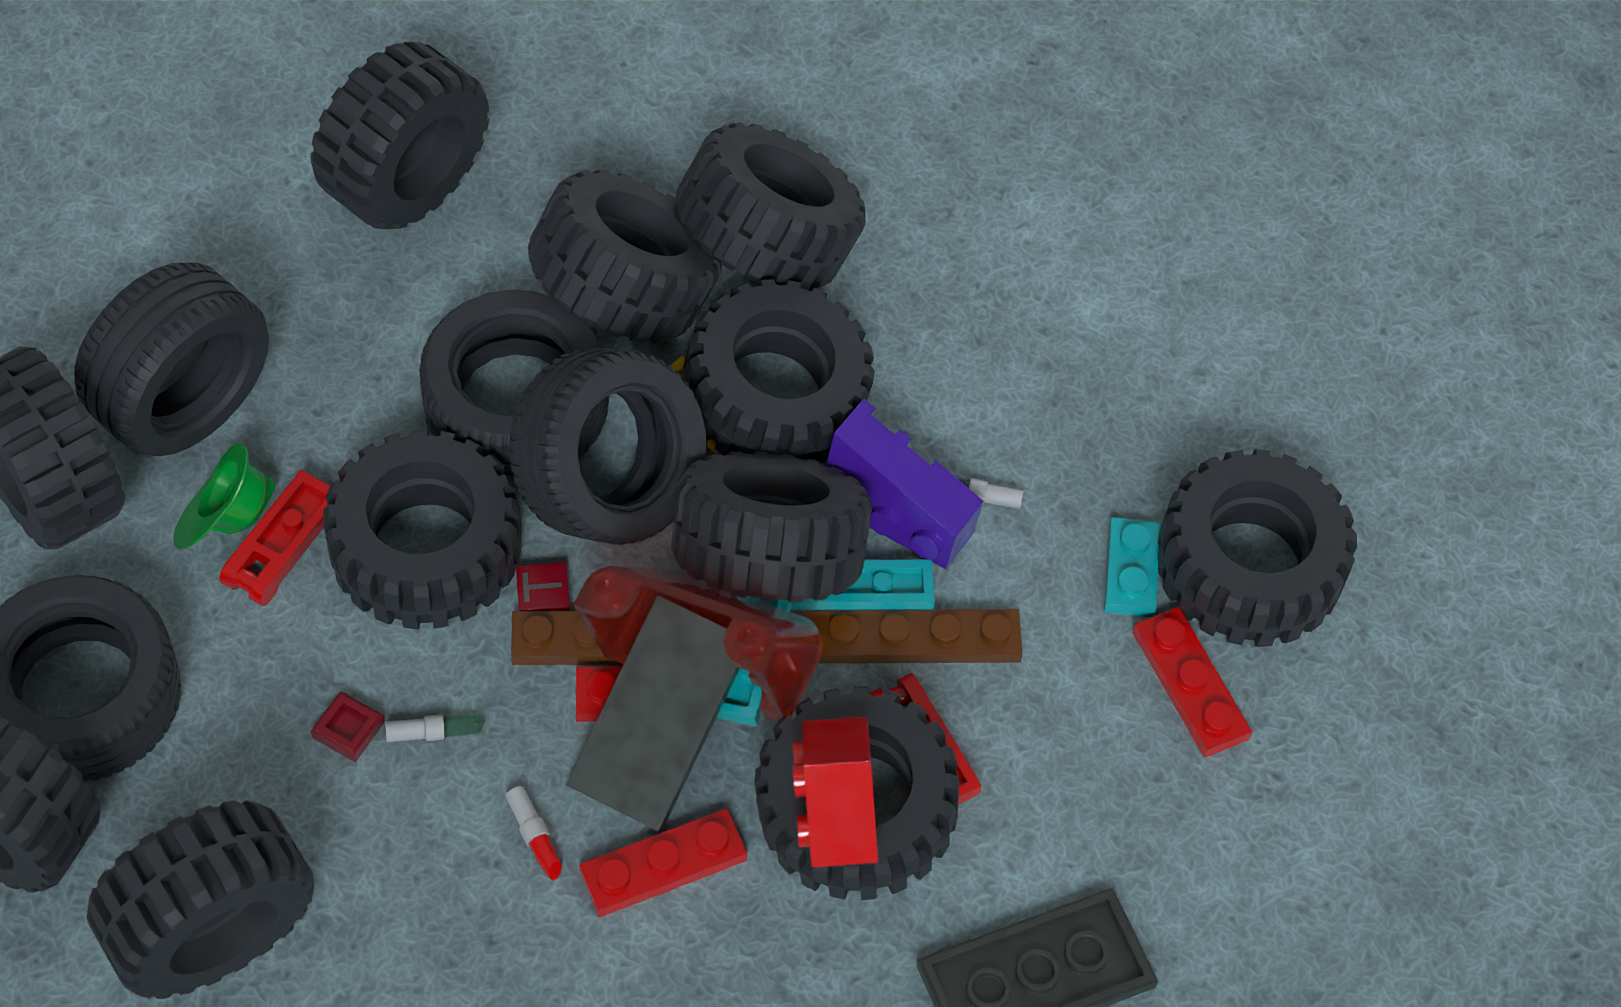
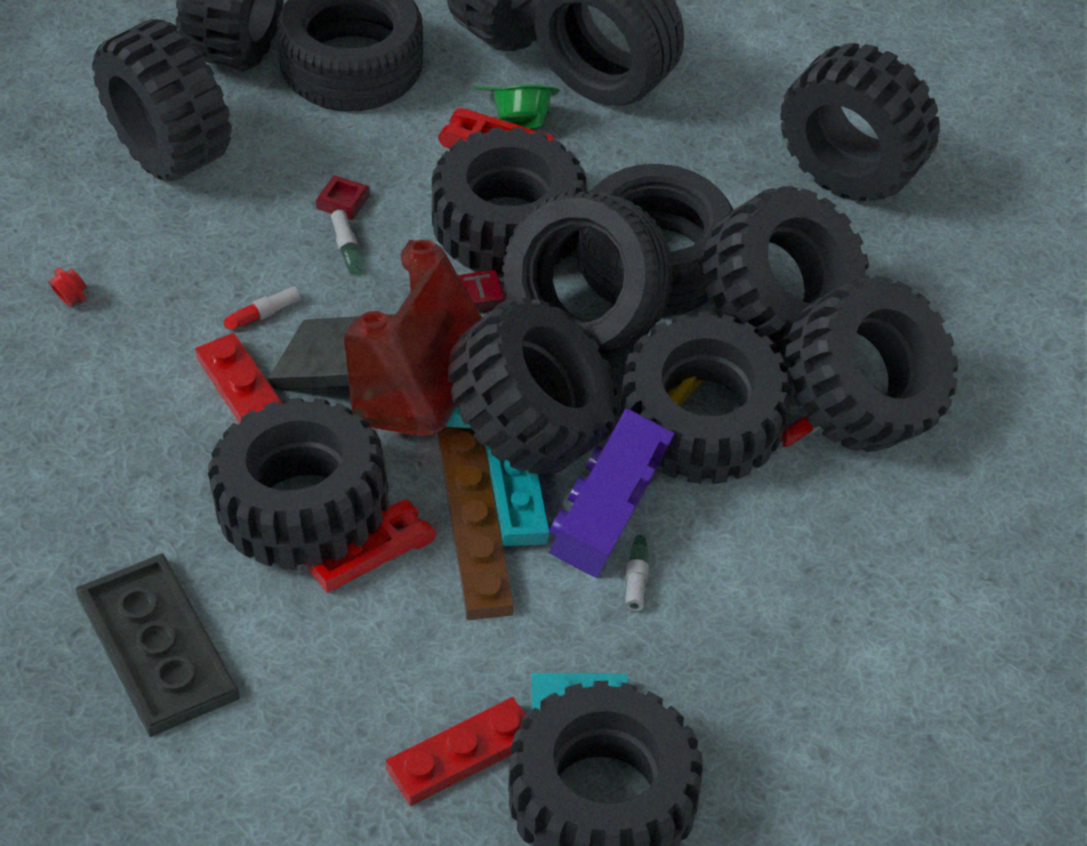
camera: 85 degrees right, 10 degrees down
(836, 778) = (259, 410): red brick -> none

